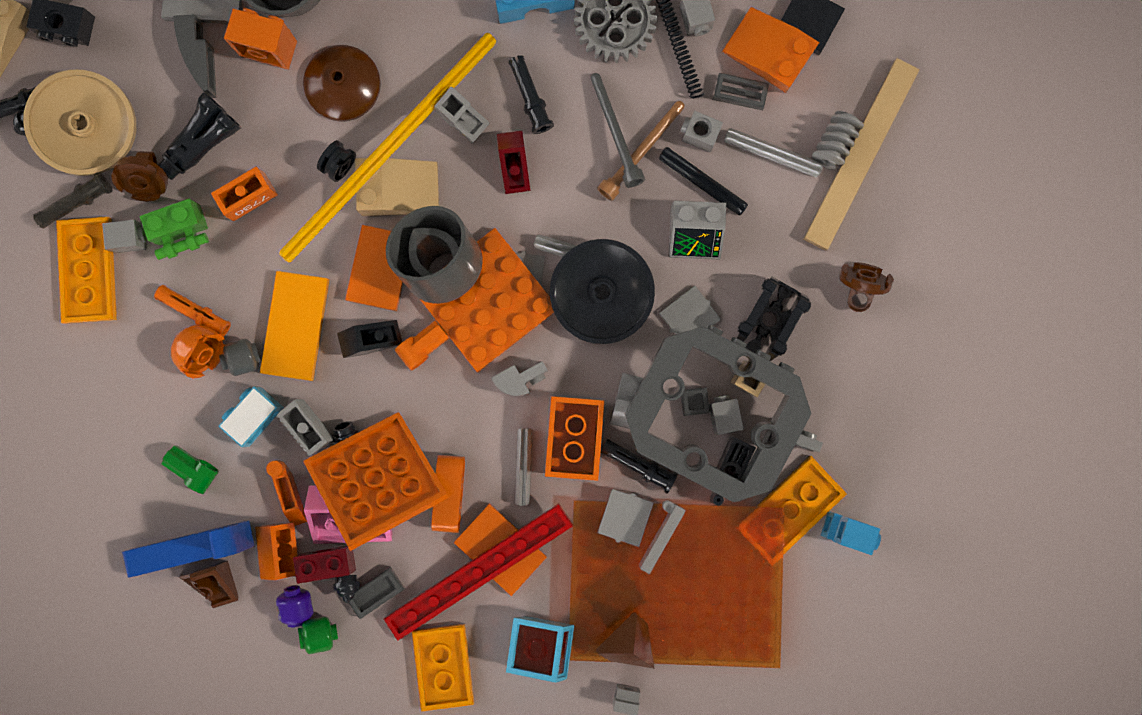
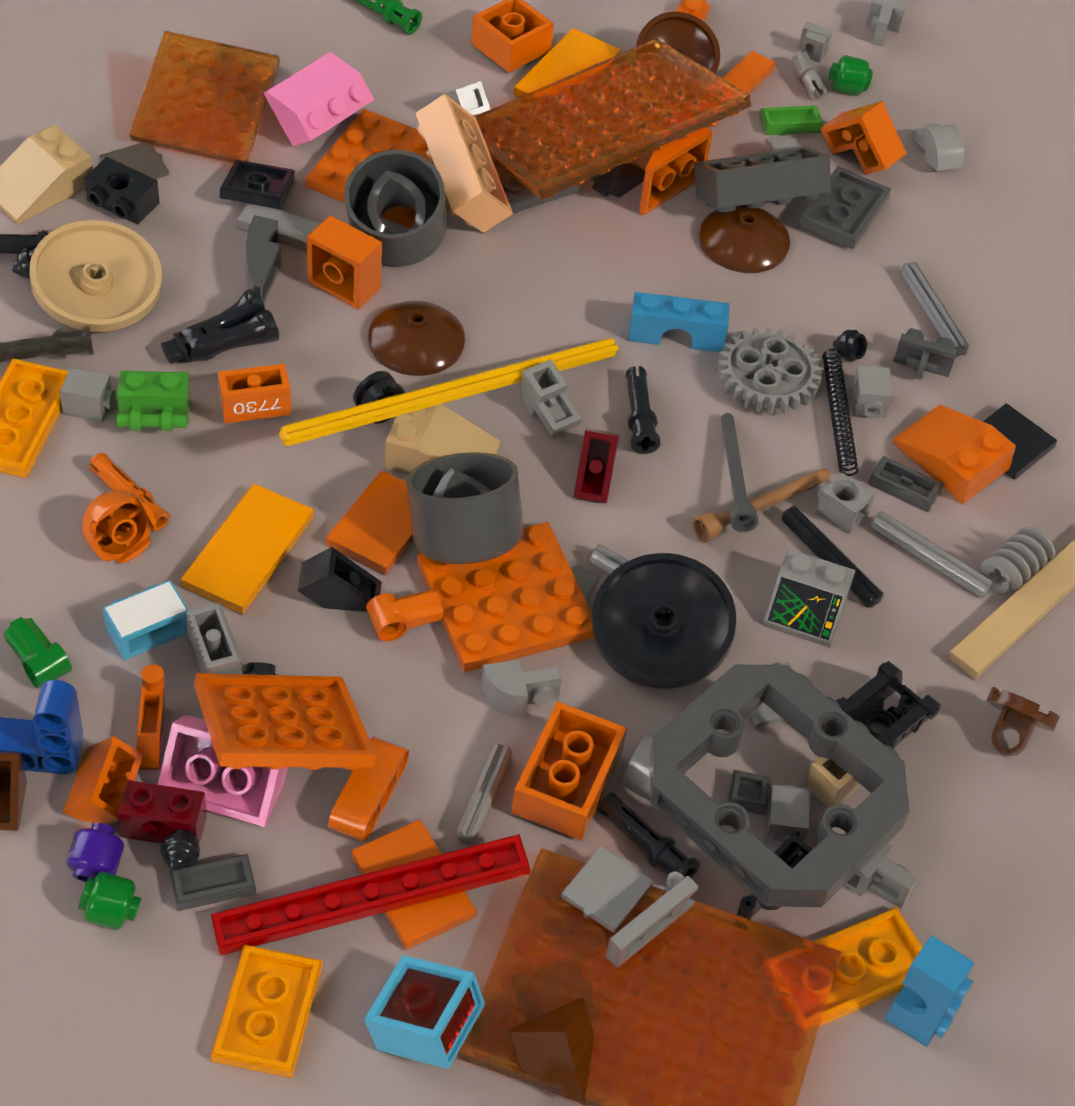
camera: 15 degrees right, 35 degrees down
(140, 176) = (137, 340): reddish brown tile -> none
(240, 357) = (165, 553): dark grey head -> none

